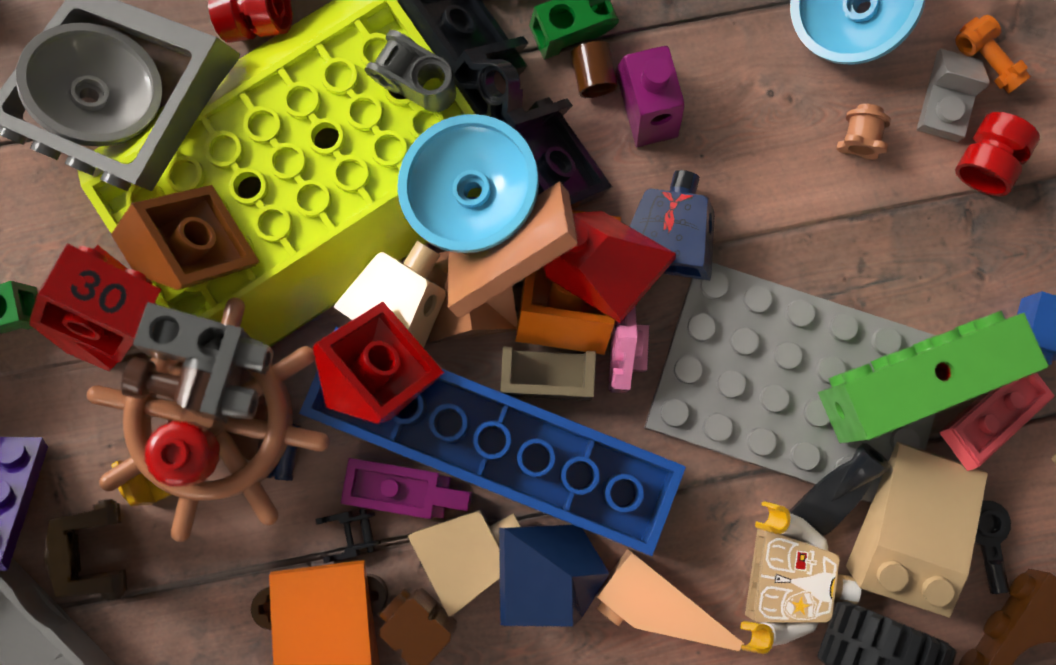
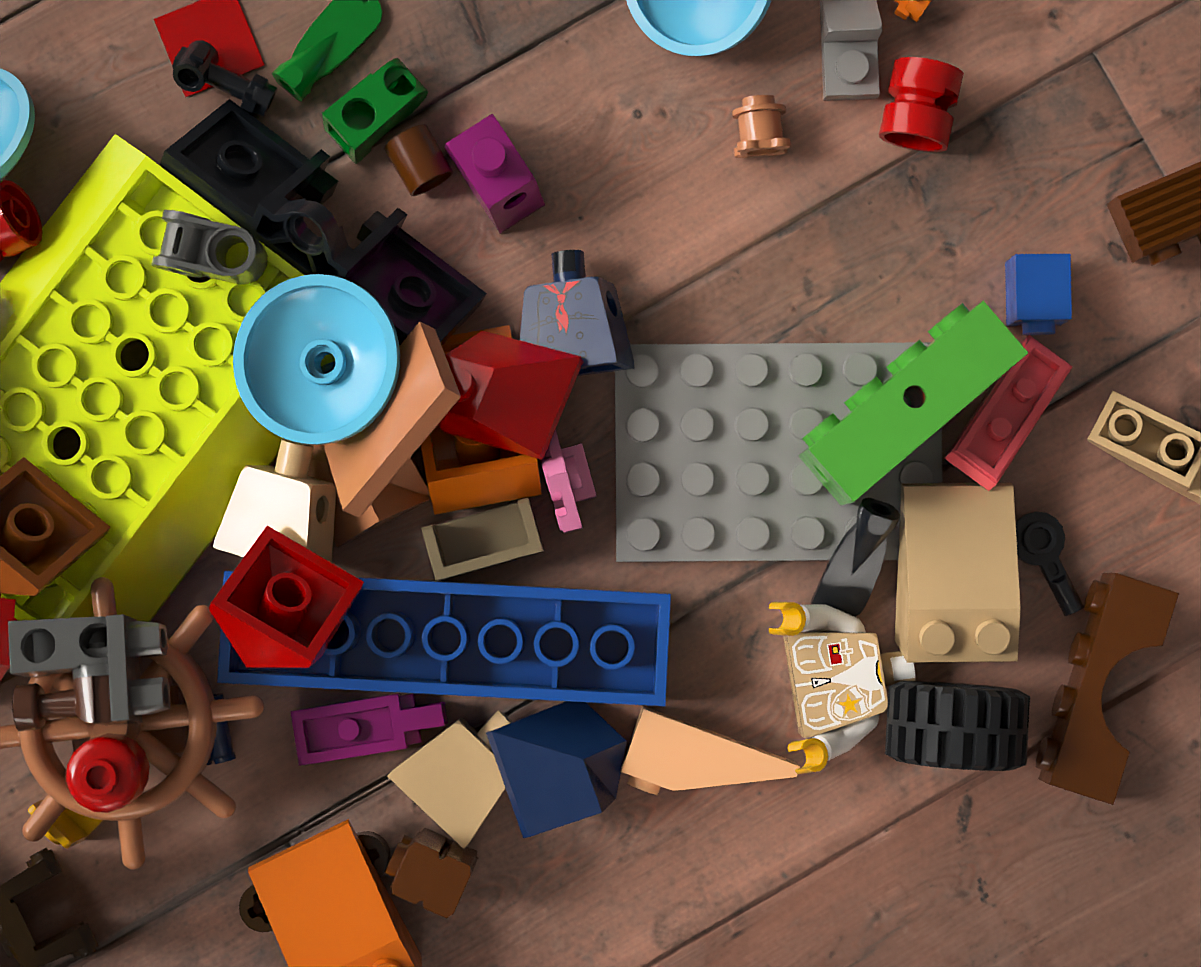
camera: 15 degrees left, 5 degrees up
(345, 519) = (330, 812): black piece -> none

